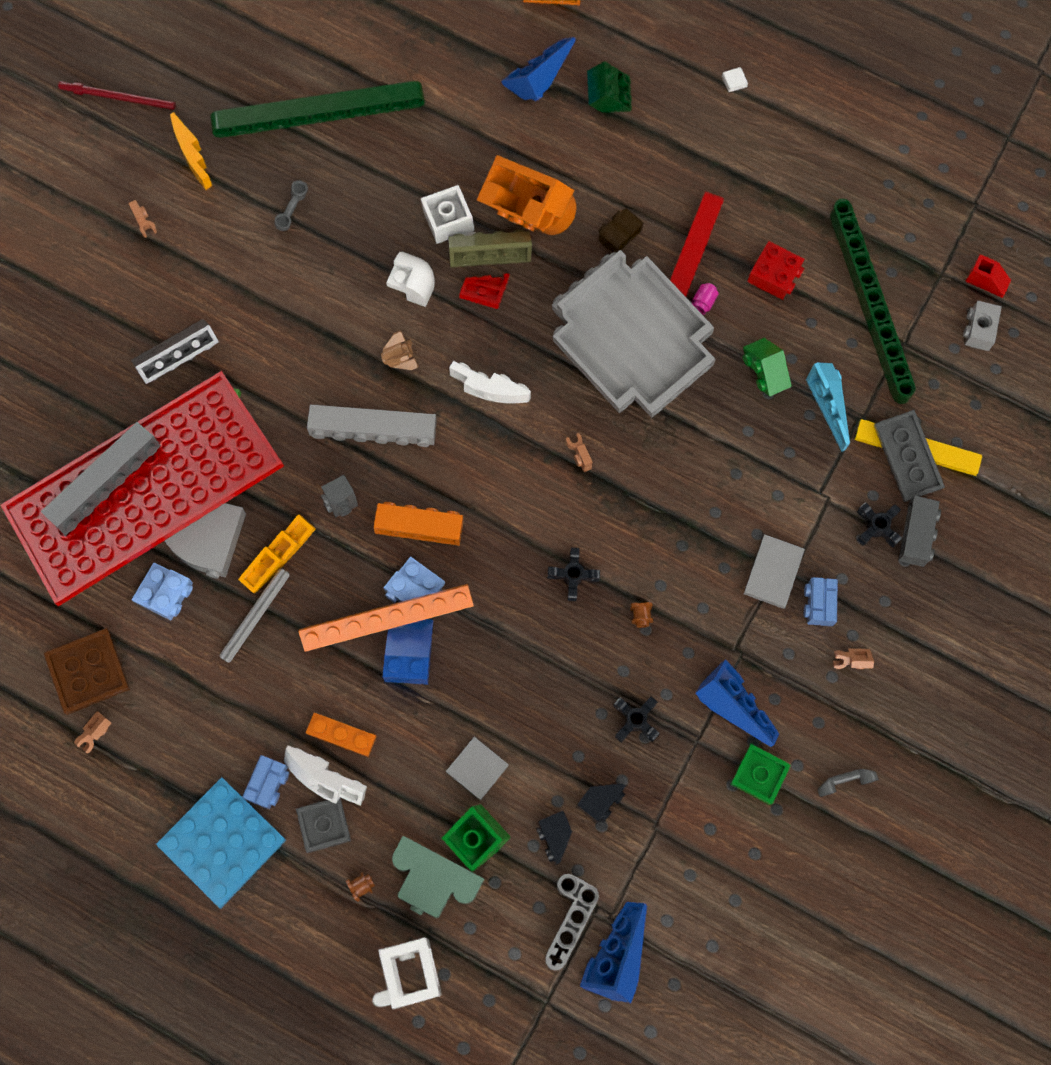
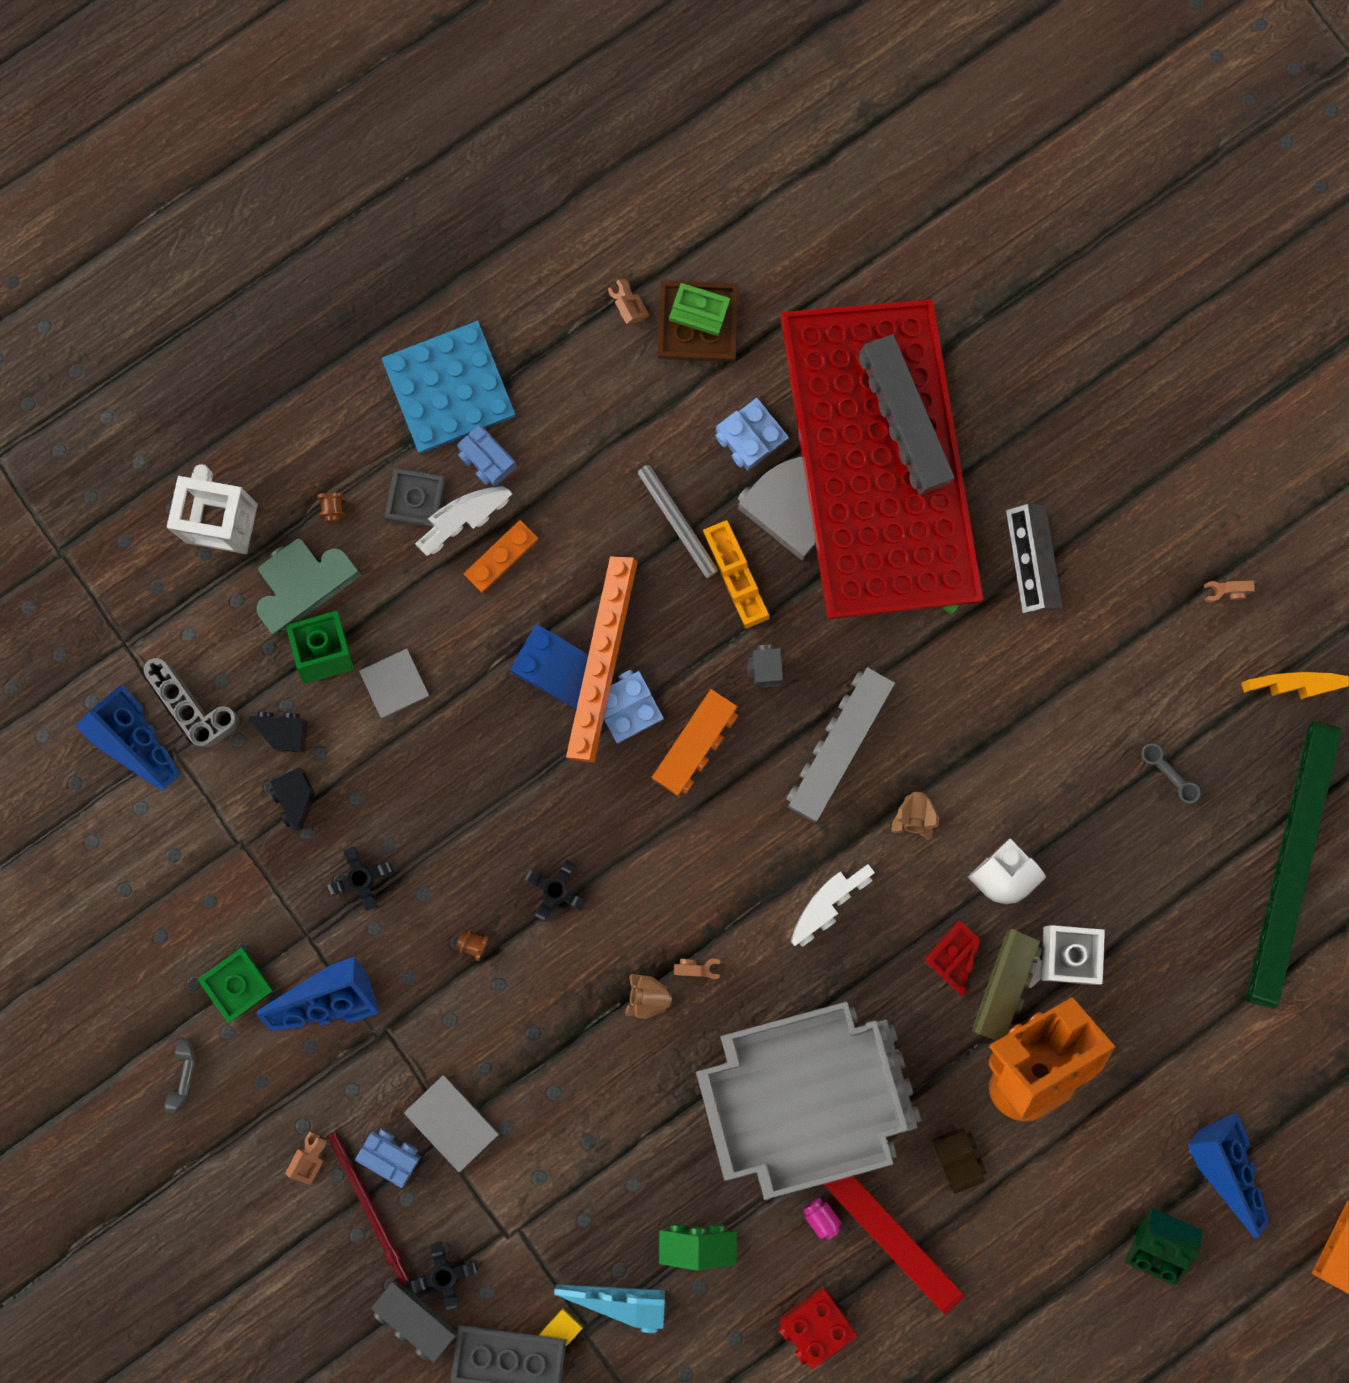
camera: 120 degrees right, 10 degrees up
(77, 670) = (699, 309): none -> bright green plate
(617, 475) = (647, 997): none -> medium nougat brick
(883, 569) = (393, 1255): none -> dark red bar

